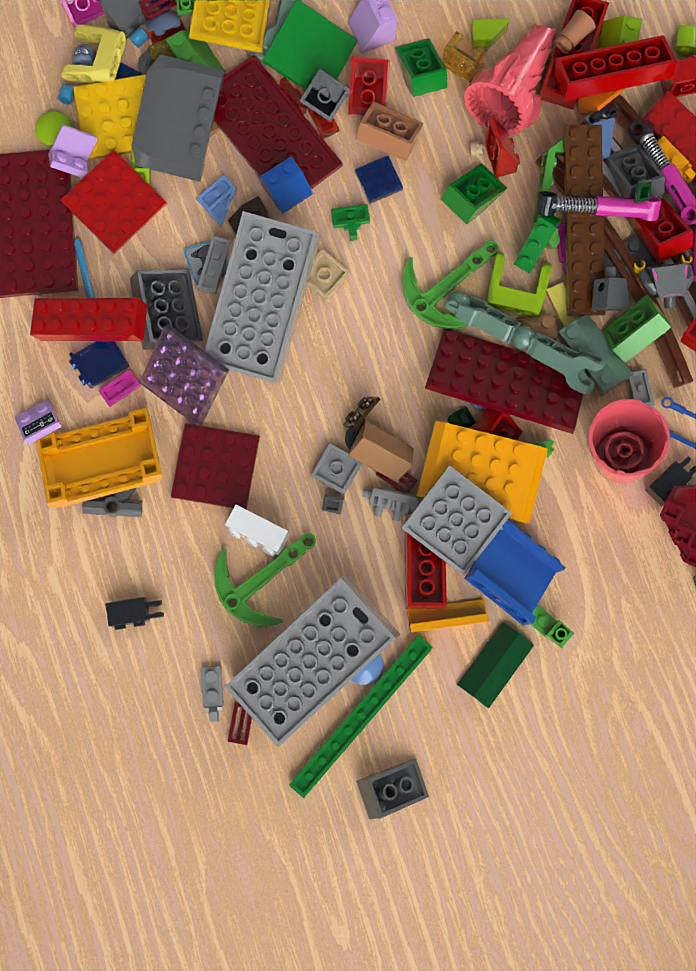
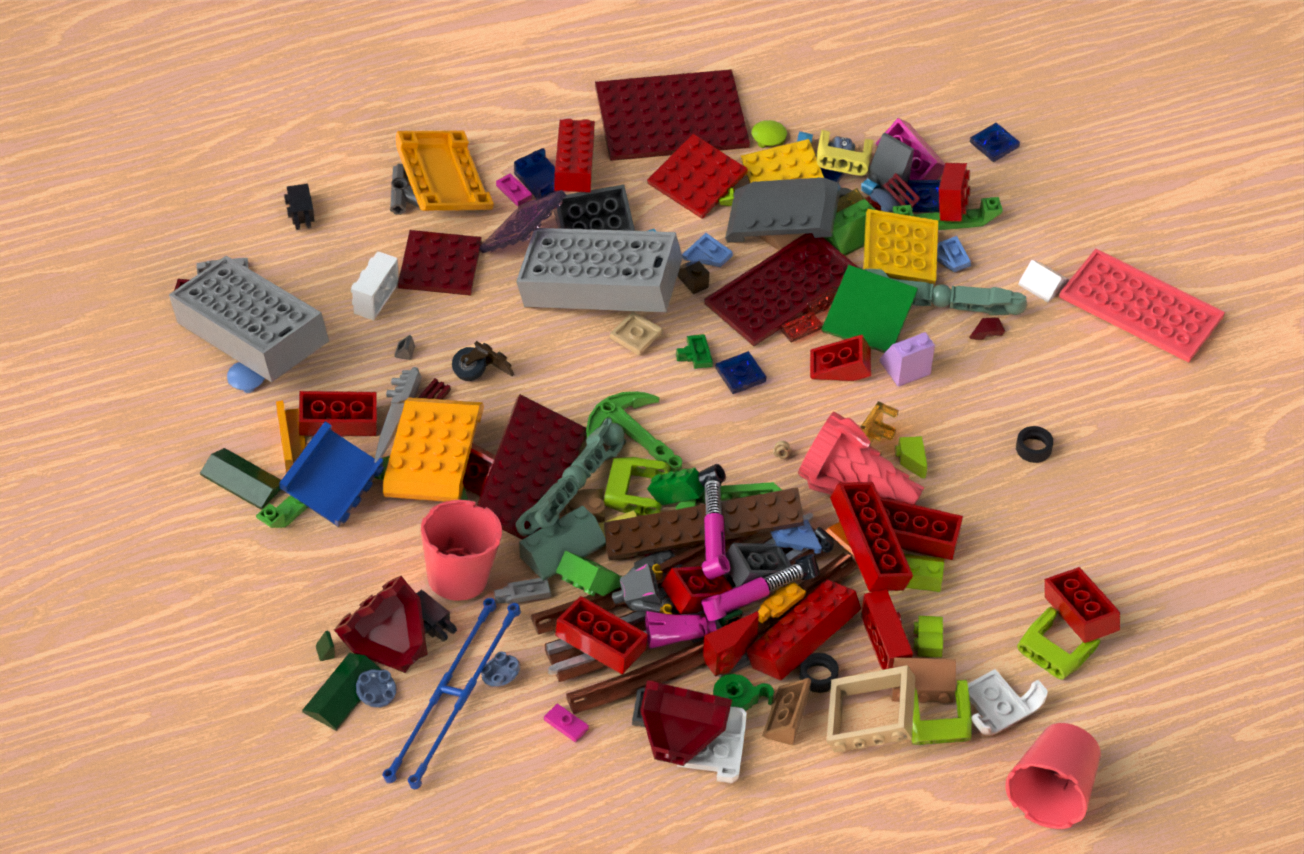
camera: 85 degrees right, 30 degrees down
(37, 422) = (478, 133): lavender plate -> none
(72, 151) = (739, 138): lavender bracket -> none
(83, 268) = (626, 161): dark azure piece -> none
(255, 583) = (313, 278): bright green piece -> none
(286, 185) = (723, 293): blue slope -> none
(324, 95) = (822, 319): slope -> none
(336, 469) = (438, 348): light grey plate -> none
(360, 716) = (198, 374): green plate -> none
(382, 452) = (455, 371): medium nougat slope -> none
(389, 131) = (792, 375): nougat slope -> none
(392, 789) = (125, 396): dark grey slope -> none
(421, 67) = (858, 399): green slope -> none
(456, 520) = (383, 418): light grey plate -> none
(461, 418) = (491, 444): dark green slope -> none
(473, 193) = (733, 447): green slope -> none
(500, 149) = (778, 455): red slope -> none
(575, 31) = (911, 507): nougat plant -> none
(610, 292) = (627, 548): dark grey torso -> none
(642, 190) = (728, 544): dark green slope -> none

